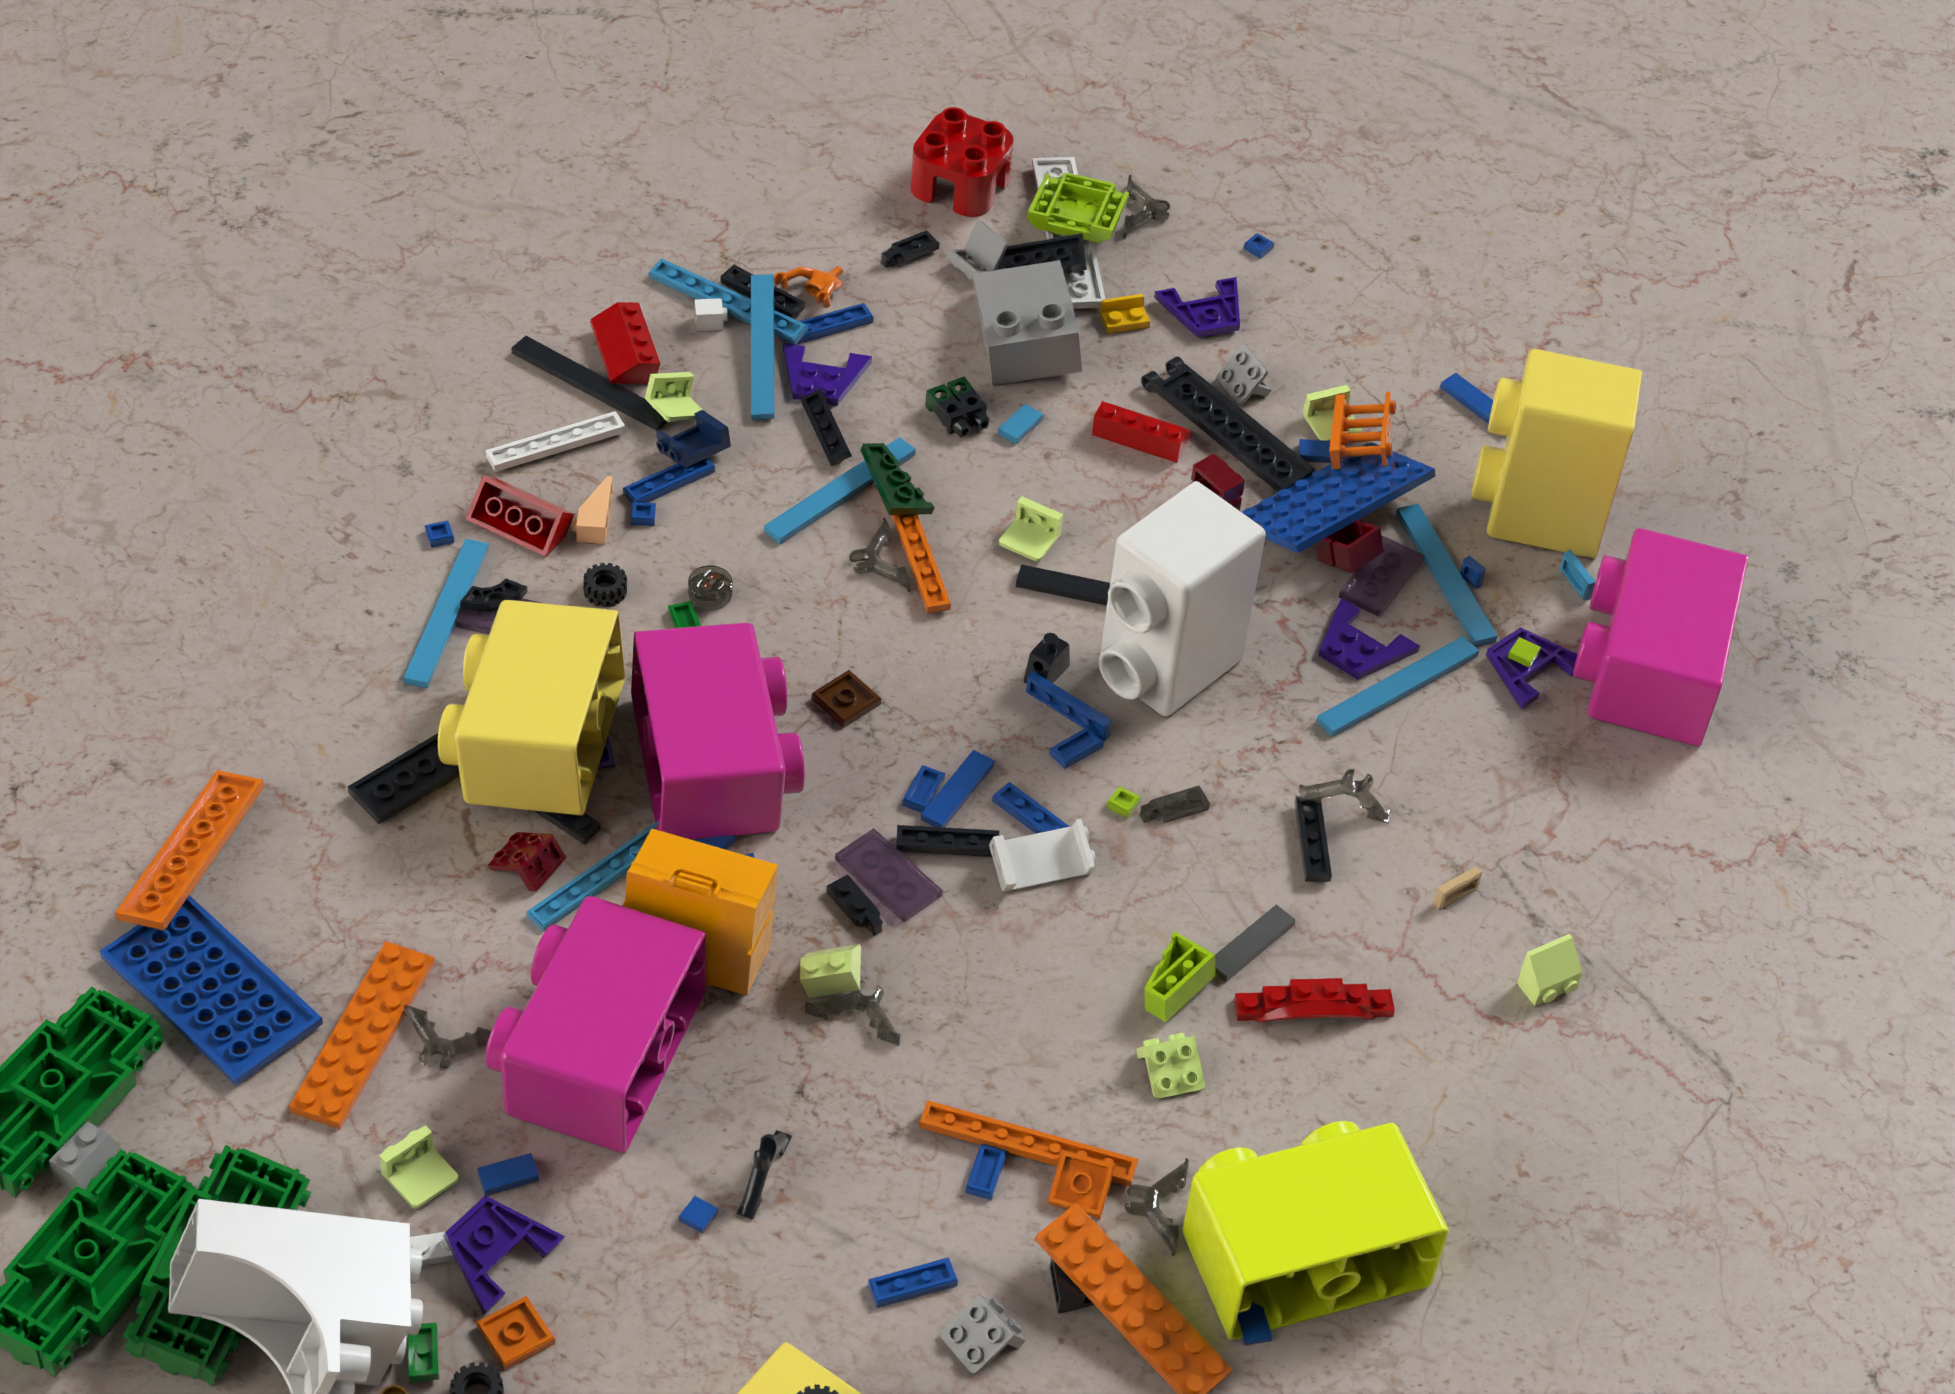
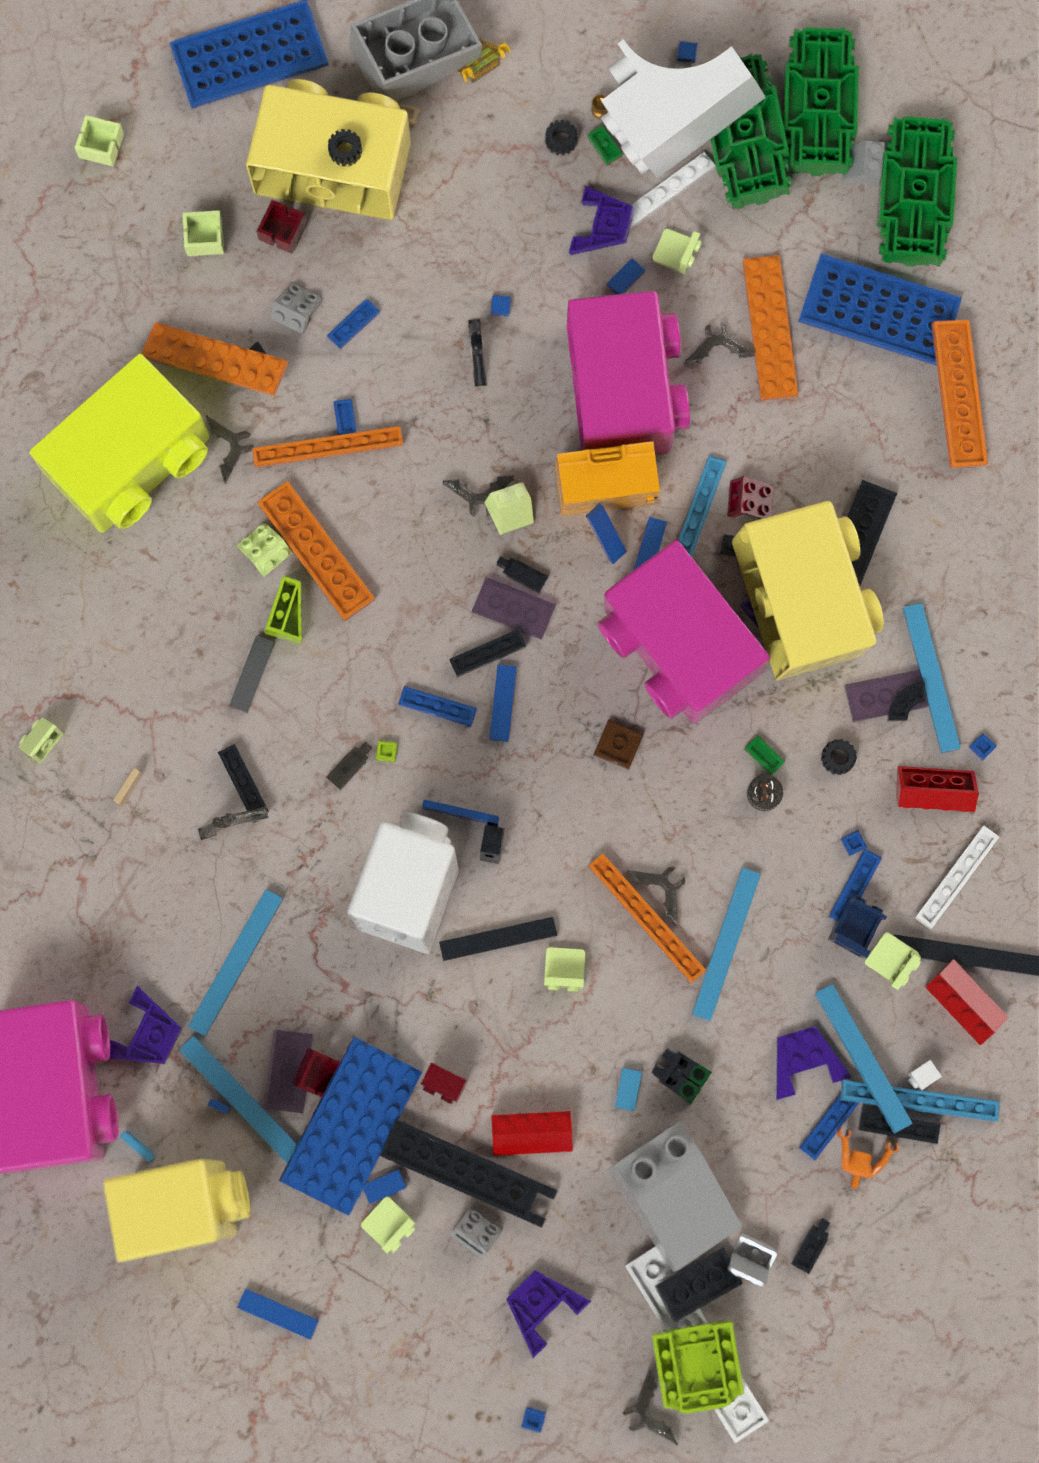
camera: 160 degrees right, 30 degrees up
(515, 1333) = (562, 184): orange tile -> none
(594, 515) = (883, 814): light nougat slope -> none
(825, 427) = (770, 999): black plate -> none
(892, 483) = (681, 953): dark green wing -> none
(923, 789) = (526, 692): blue tile -> none
(966, 152) = (820, 1366): red piece -> none
(1042, 857) = (419, 667): white panel -> none
(1076, 747) = (440, 783): blue tile -> none
(1082, 1182) = (282, 432): orange tile -> none
(1105, 1036) = (316, 551): none -> orange plate
(1124, 314) = (604, 1261): yellow bracket -> none
(1314, 1000) = (187, 639): red piece -> none
(1342, 424) = (374, 1209): orange fence -> none
(1355, 650) = (282, 982): dark purple wing -> none
(1524, 652) = (151, 1034): lime tile -> none

